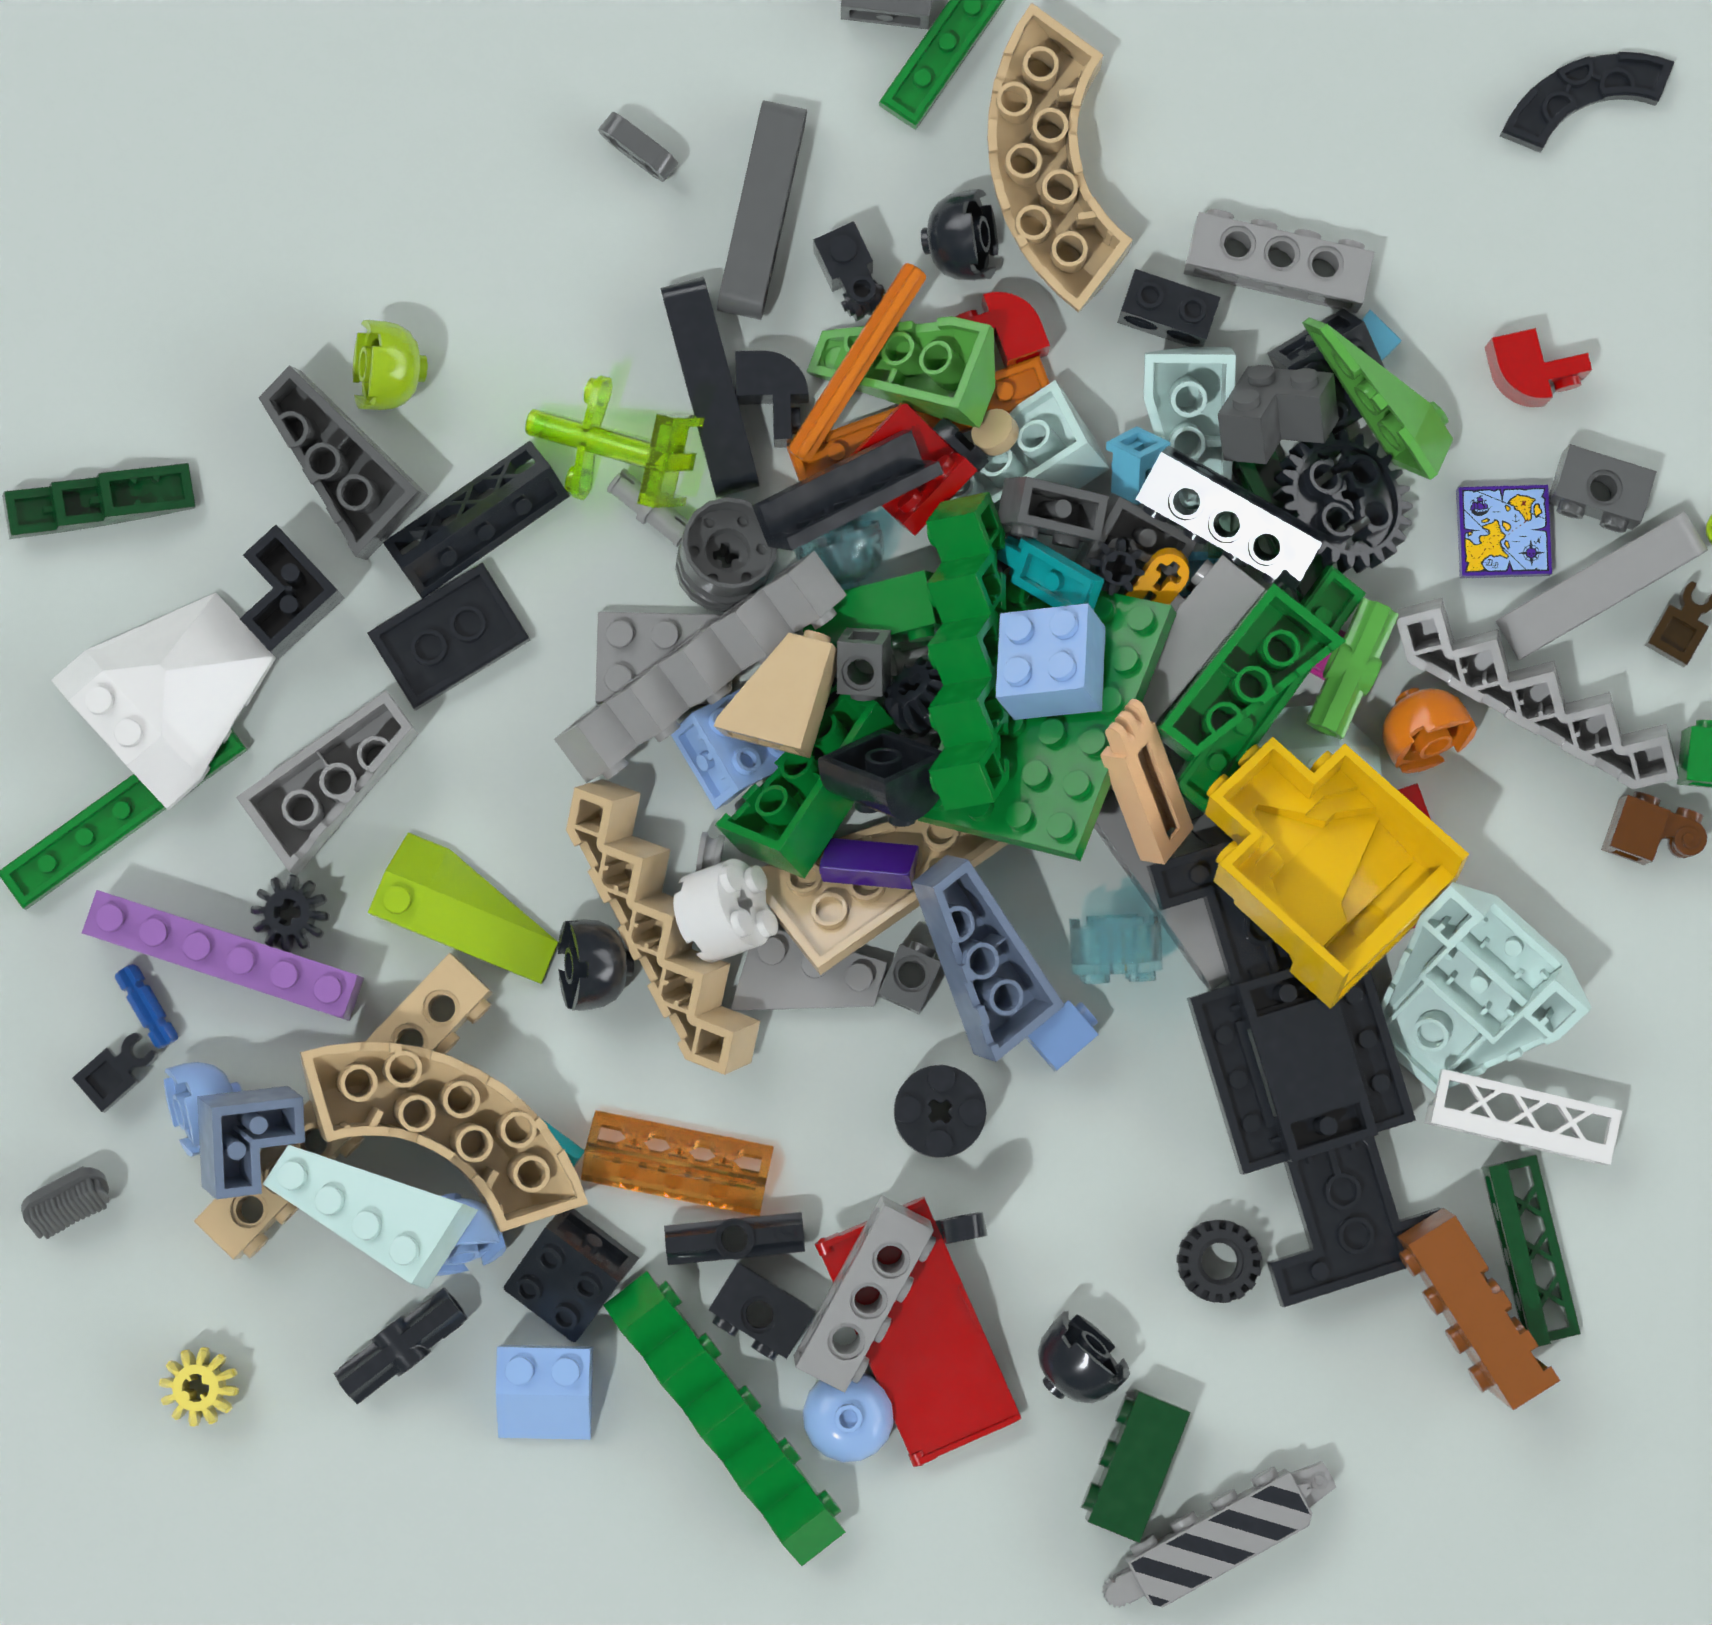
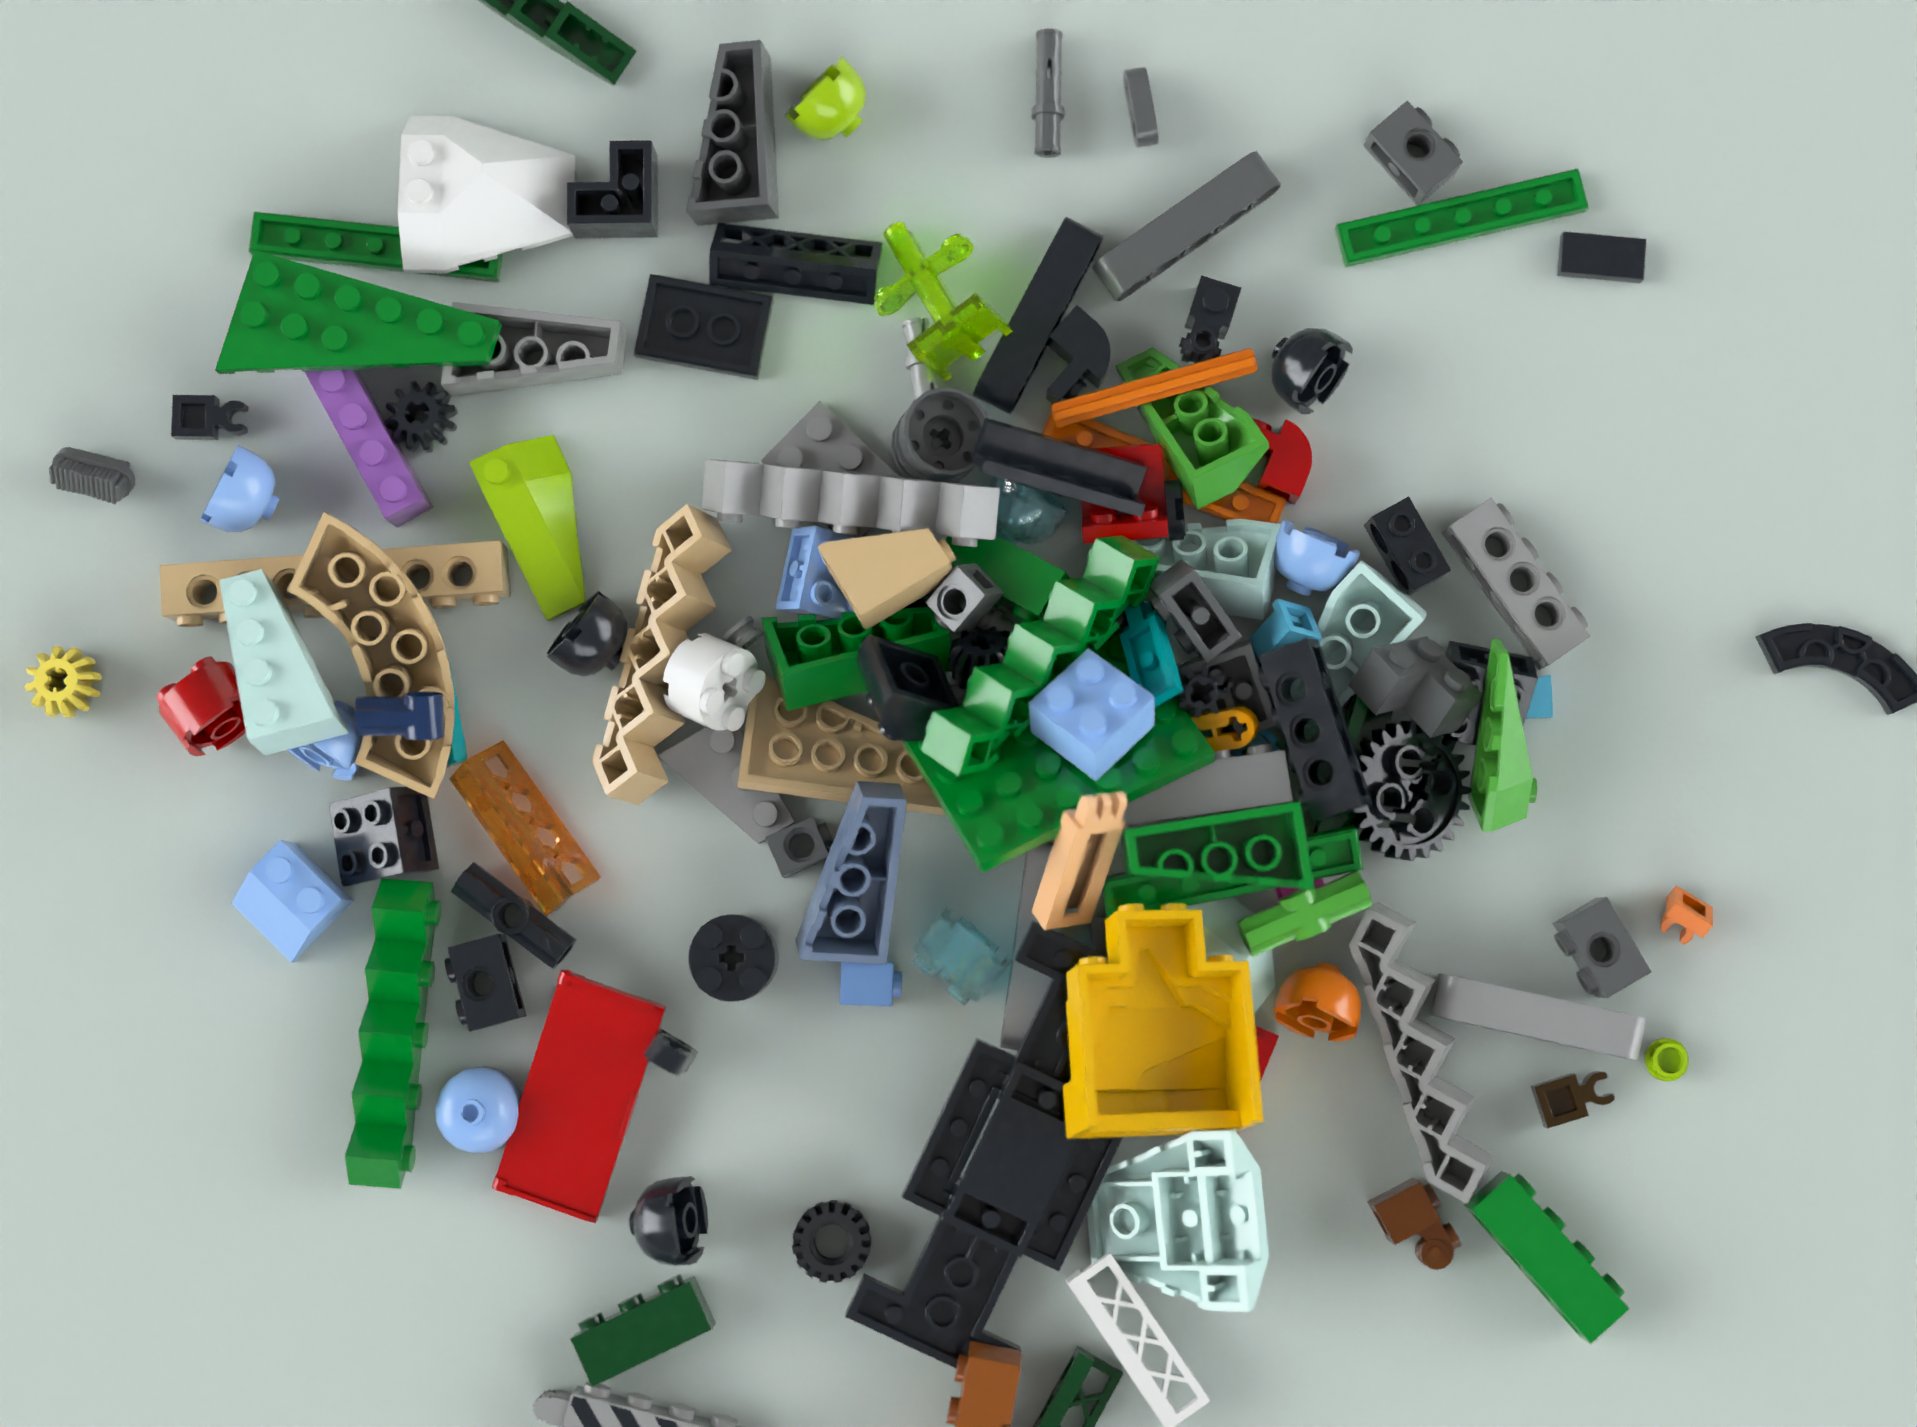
camera: 45 degrees right, 0 degrees up
(146, 1006) = (267, 401): blue axle -> none
(150, 904) = (328, 322): none -> green wing
(235, 1129) = (244, 526): sand blue brick -> none
(338, 1296) = (204, 707): none -> red brick
(400, 1346) = (222, 779): black piece -> none
(516, 1150) = (412, 715): none -> dark blue piece
(566, 215) = (1048, 106): none -> dark grey pin
(869, 863) = (842, 741): dark purple slope -> none
(887, 1226) = (500, 1068): light grey brick -> none
(996, 433) = (1207, 523): tan tile -> none
(1039, 161) = (1408, 361): tan brick -> none
(1103, 385) = (1312, 559): none -> light blue cylinder
(1504, 531) = (1503, 915): tile -> none
(1523, 375) = (1618, 819): red brick -> none
(1643, 399) = (1688, 912): none -> orange tile

